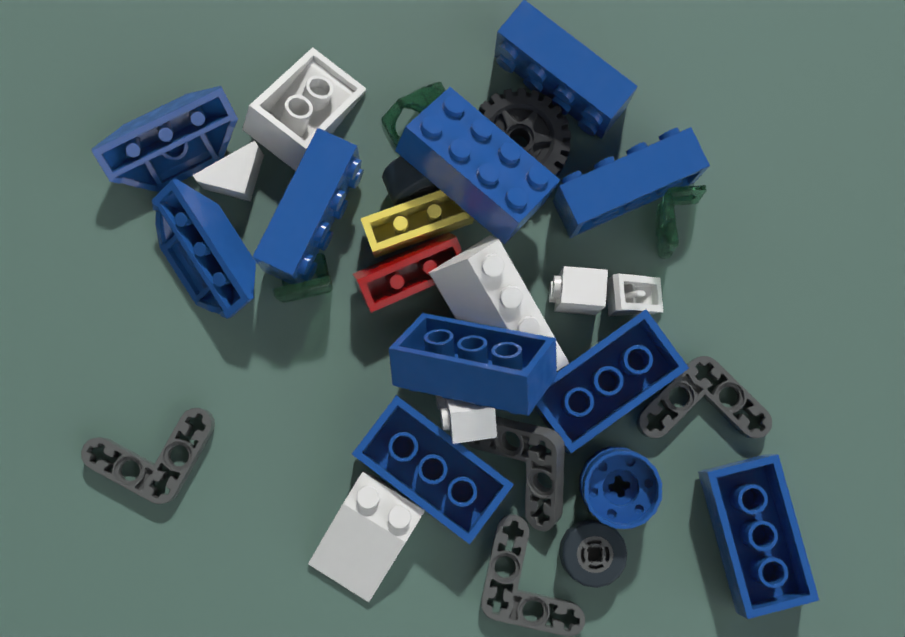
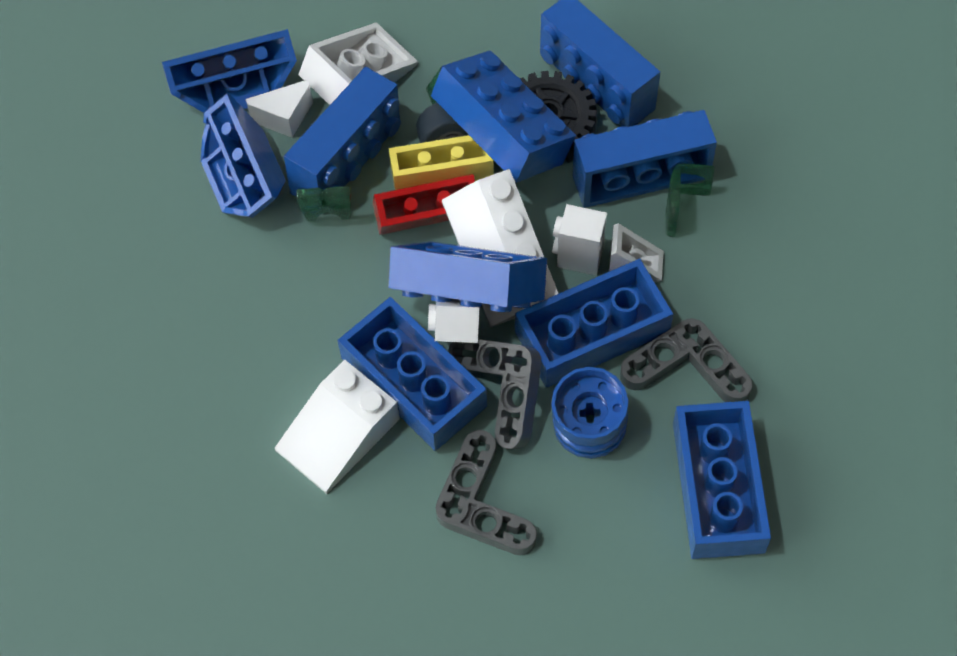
camera: 15 degrees right, 20 degrees down
(150, 471) = (149, 344): dark grey beam -> none
(581, 547) = (554, 489): black wheel -> none

